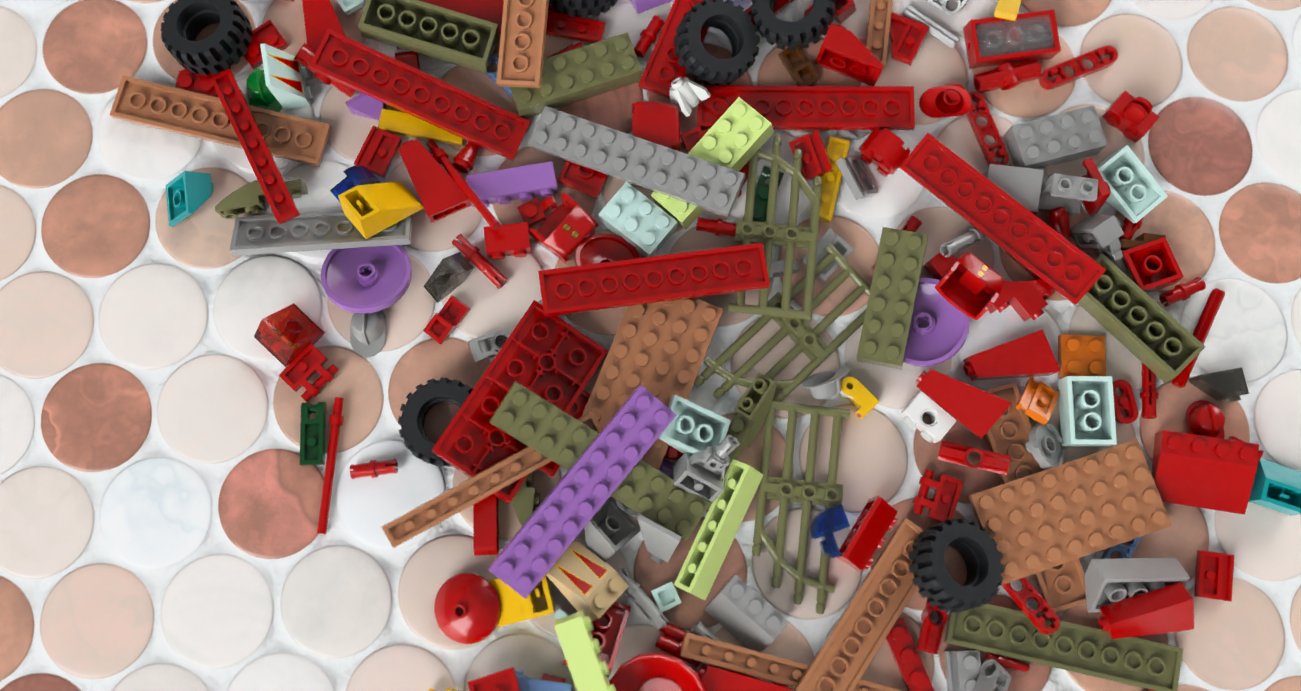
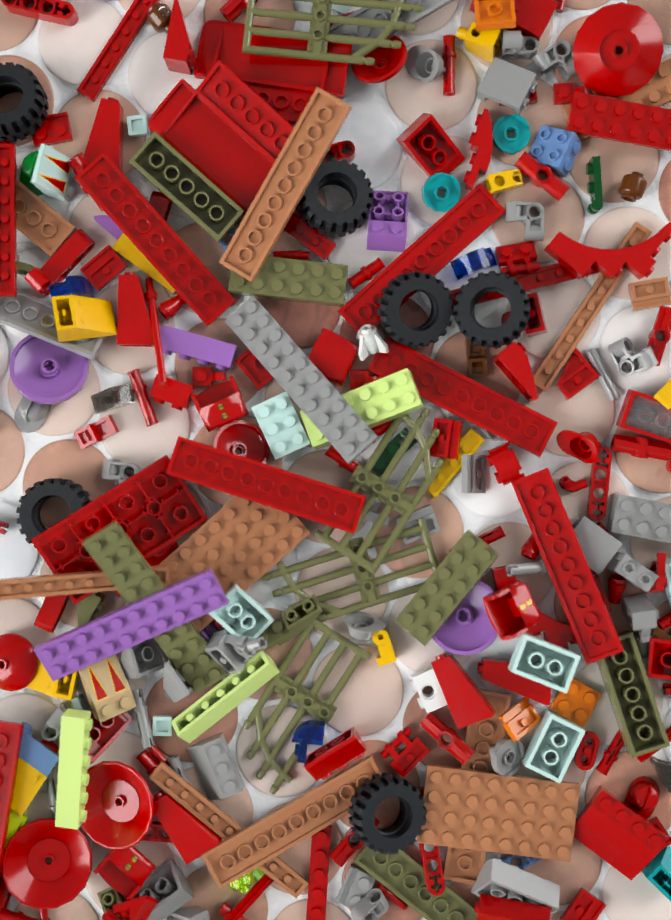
camera: 25 degrees right, 10 degrees up
(331, 166) = (61, 263): none -> red beam
(550, 647) = (54, 722): none -> light grey piece
(953, 224) = (530, 549): none -> red cone
(960, 146) = (572, 486): none -> red arm
(1031, 323) = (544, 662): none -> light aqua brick

